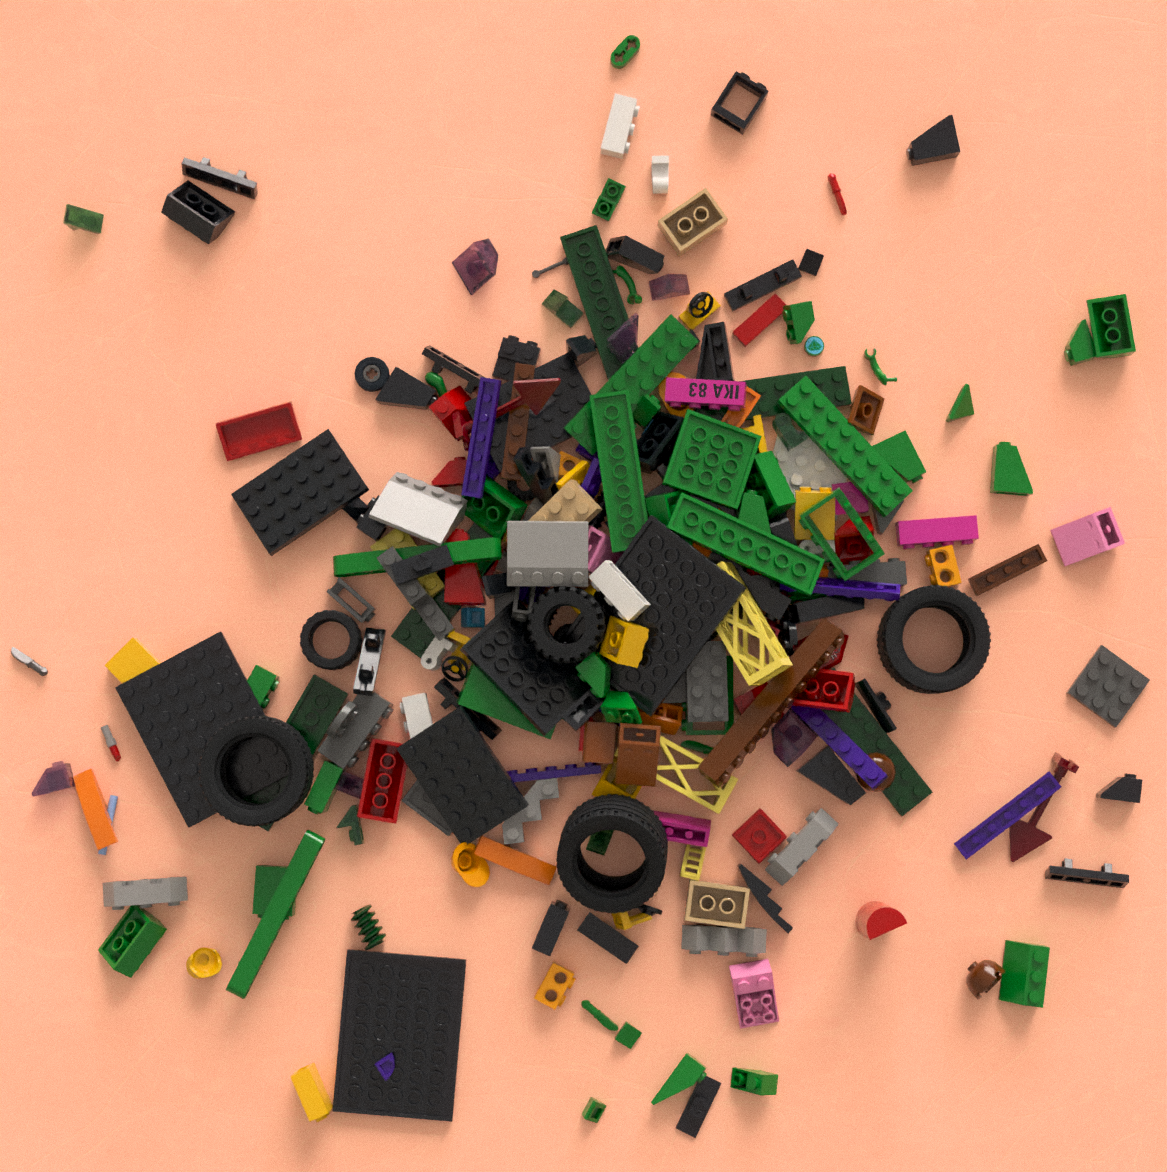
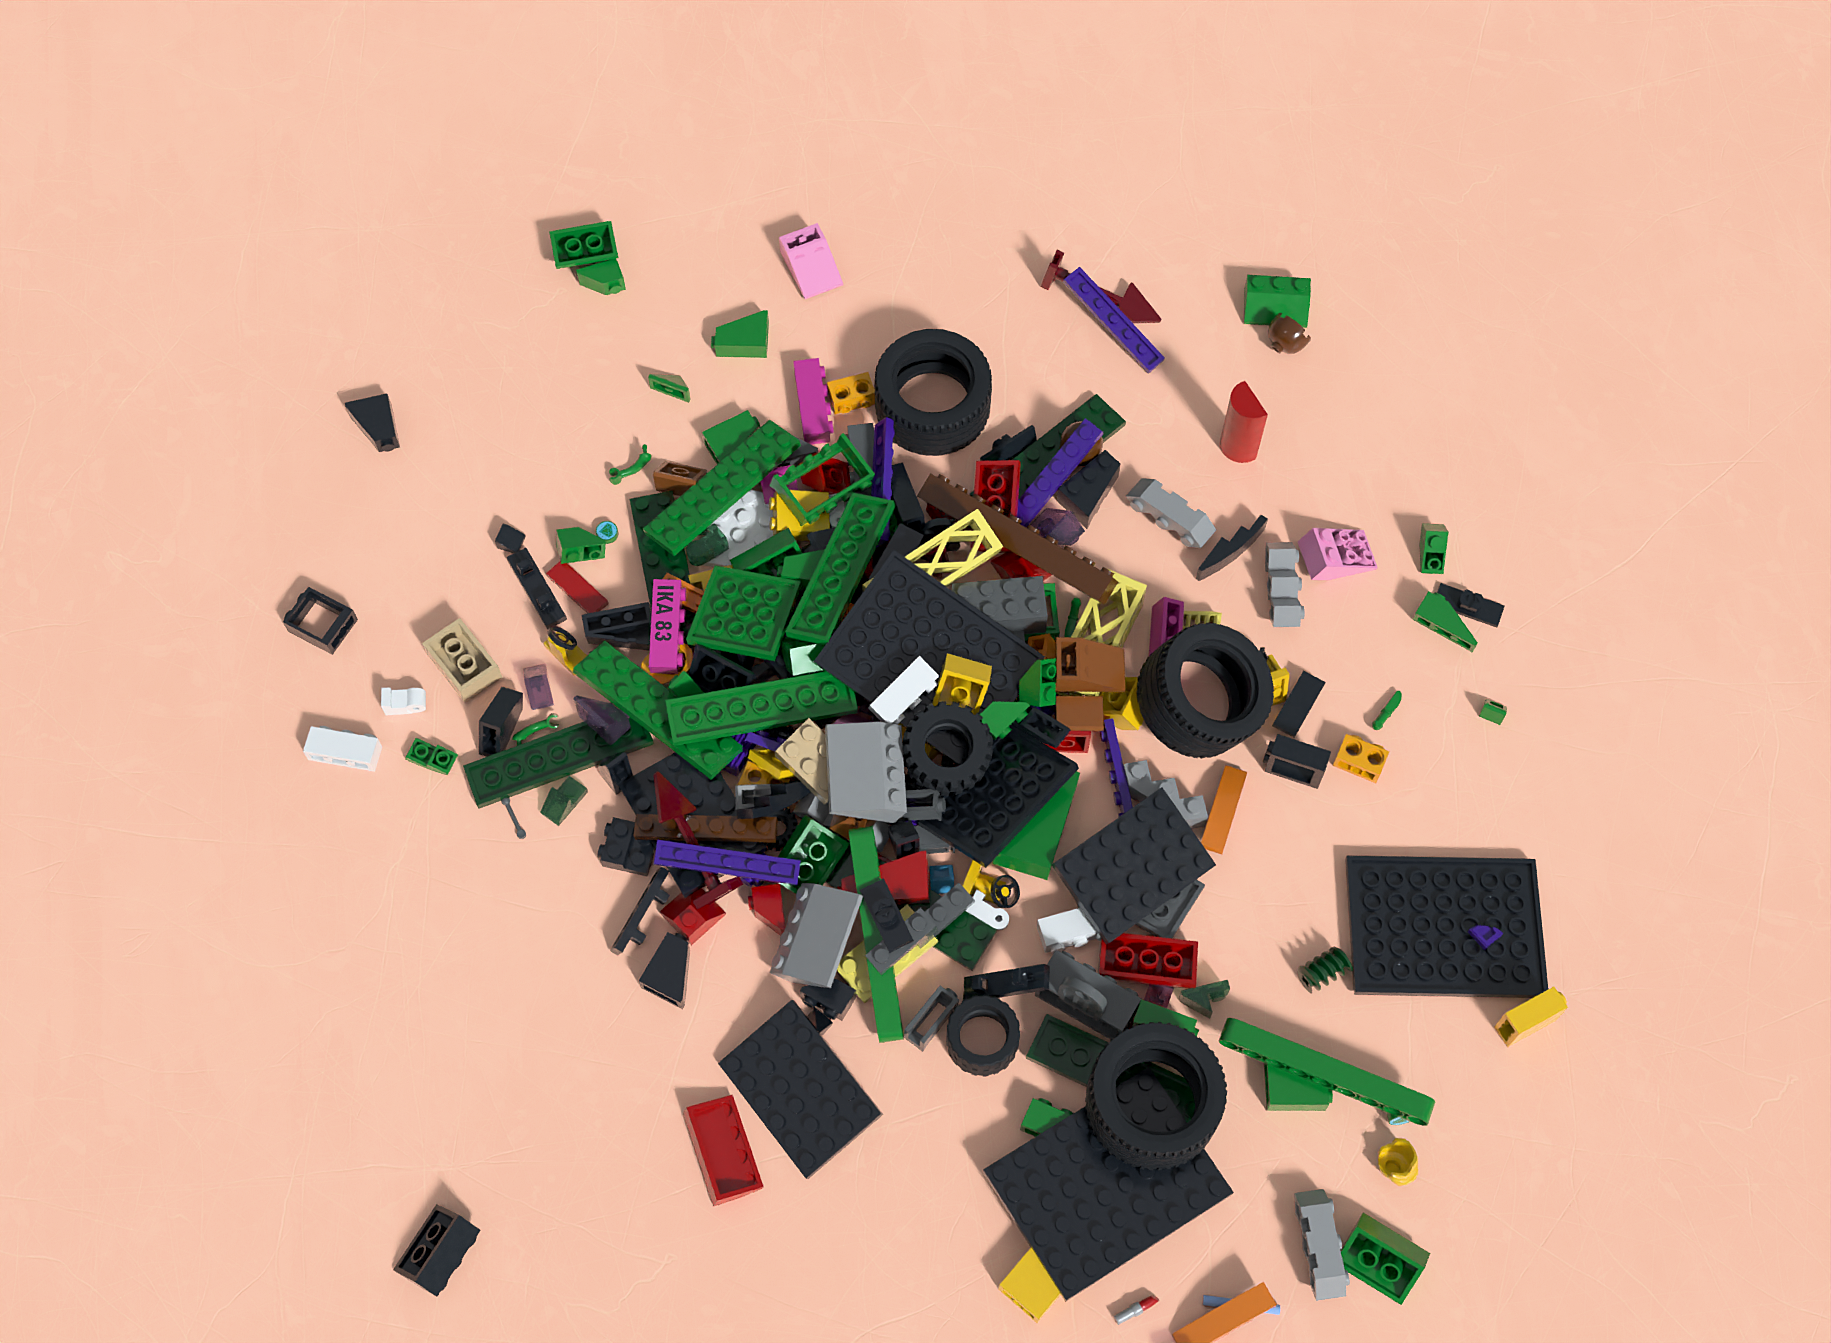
camera: 95 degrees left, 20 degrees down
(204, 172) = (392, 1224): black hinge -> none
(364, 367) = (650, 1003): black bush -> none
(436, 381) = (656, 936): green arm -> none
(470, 867) = (1236, 858): light orange piece -> none
(477, 265) = (512, 897): slope -> none
(480, 720) = (1039, 891): black hinge -> none
(622, 48) = (254, 745): green beam -> none
(628, 1035) = (1403, 680): green slope -> none
(716, 903) = (1245, 592): tan brick -> none
(759, 835) = (1163, 558): red plate -> none
(837, 191) = (433, 516): red piece -> none
(1007, 569) = (850, 334): reddish brown plate -> none
(1103, 878) = (1166, 235): black hinge -> none
(1108, 686) = (967, 241): dark grey plate -> none
(1123, 789) = (1074, 222): black slope -> none

